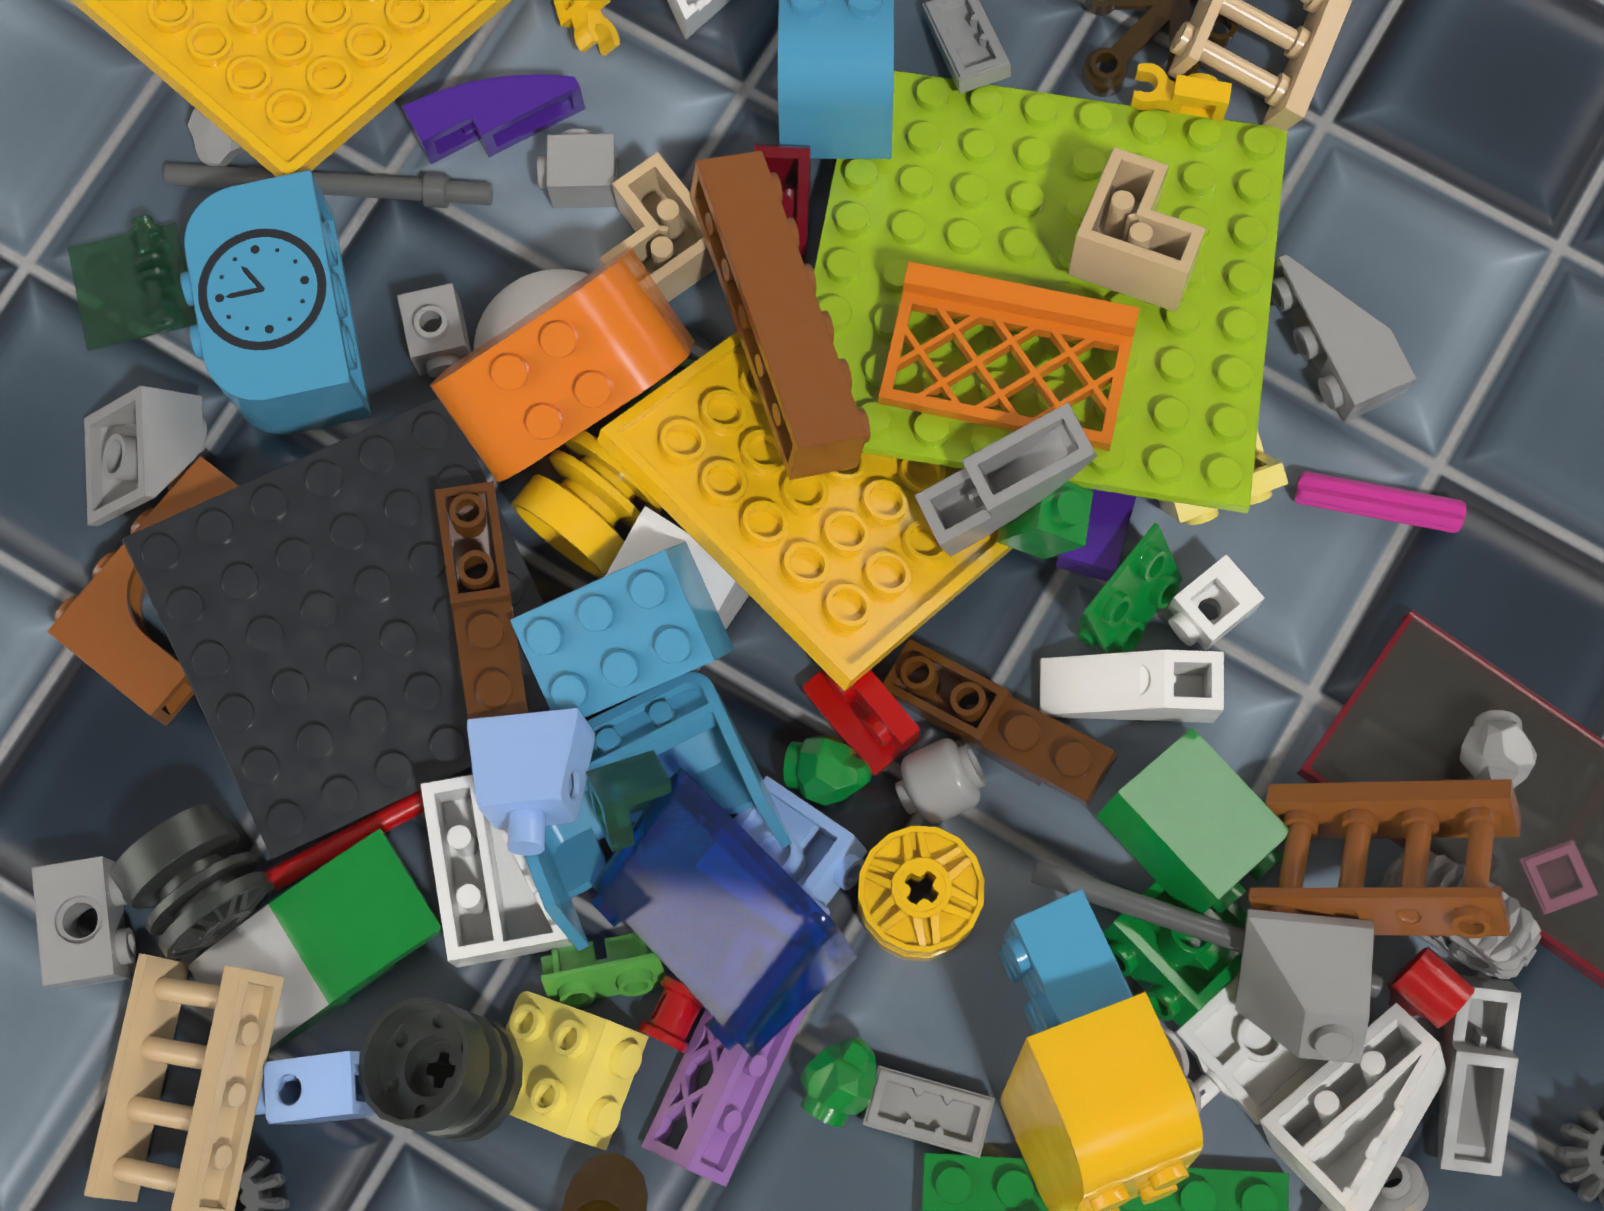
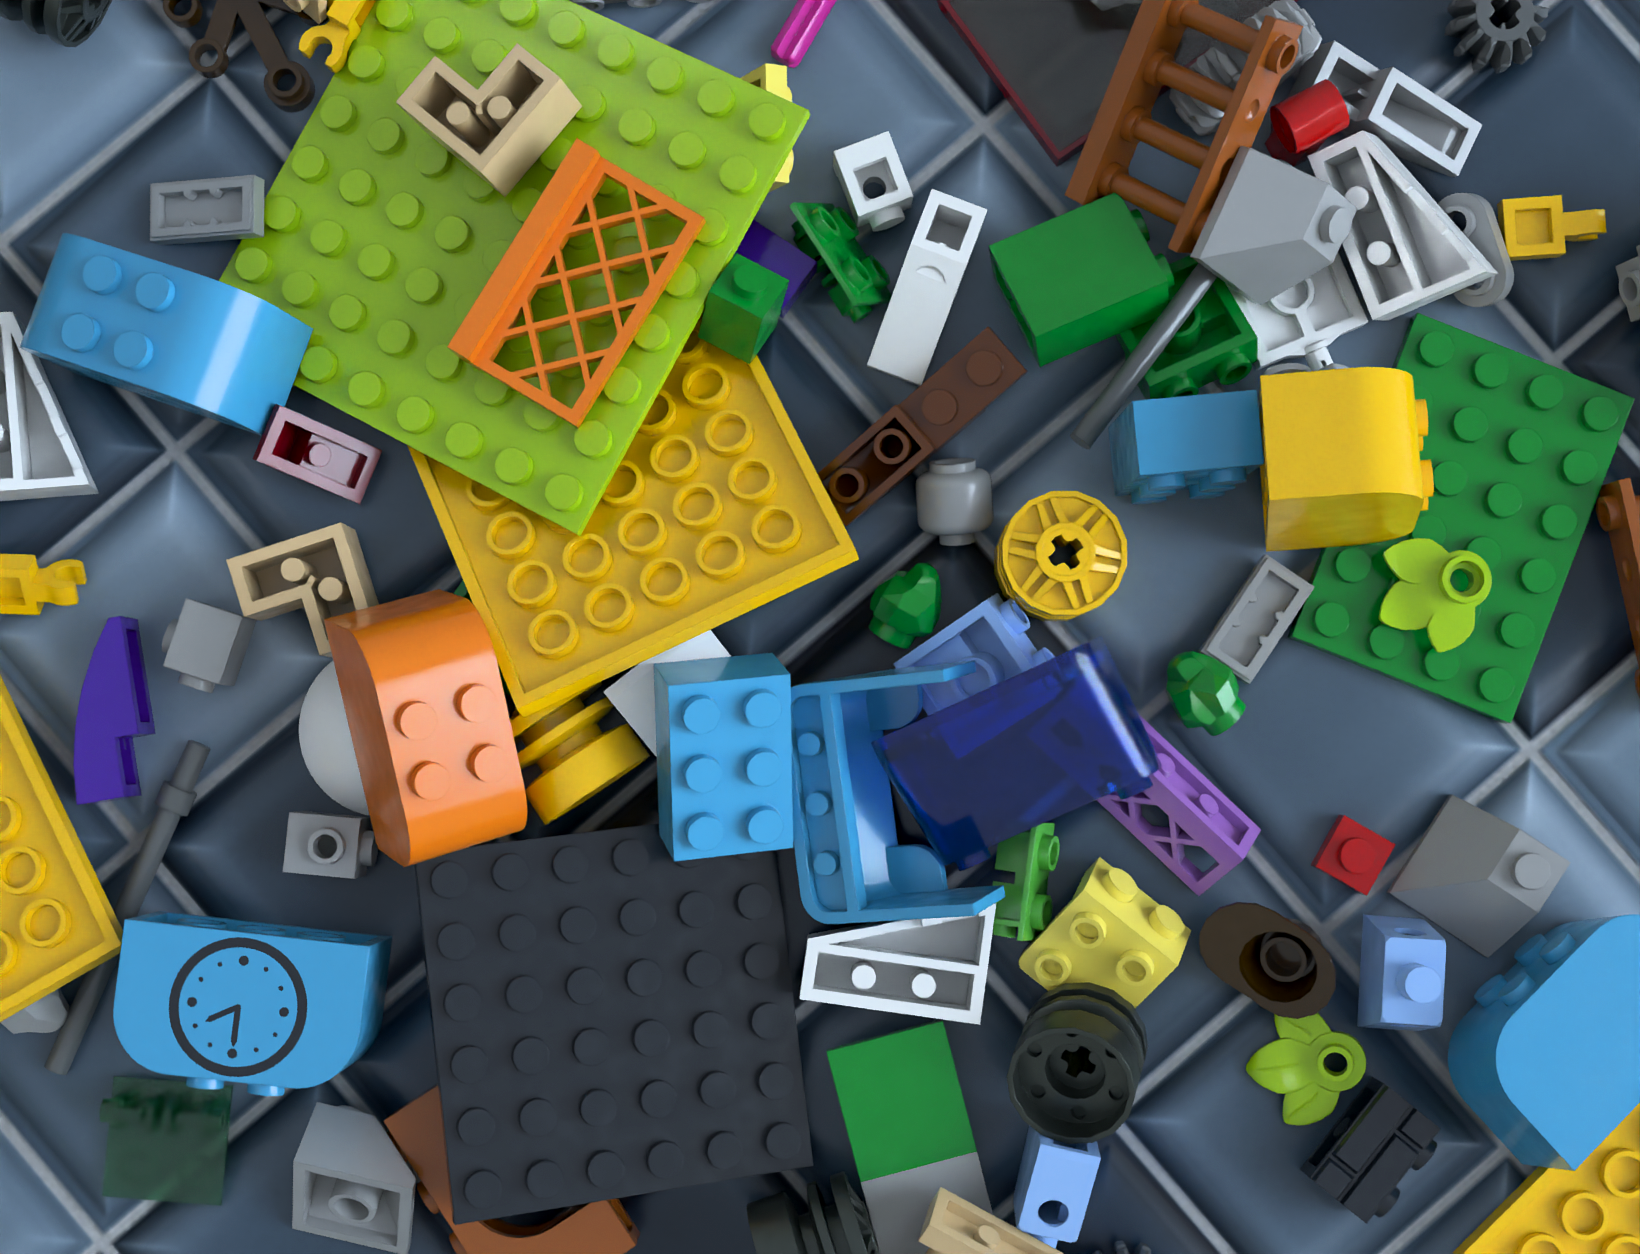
camera: 80 degrees left, 10 degrees up
(329, 848) = (817, 1090): red bar -> none
(481, 600) = (644, 884): reddish brown slope -> none
(530, 772) = (831, 889): light blue torso -> none
(624, 790) = (874, 802): clear green panel -> none
(672, 1015) = (1092, 830): red bush -> none
(778, 315) = (452, 494): dark orange brick -> none
(864, 718) = (884, 546): red bracket -> none
(1006, 479) = (704, 329): light grey slope -> none

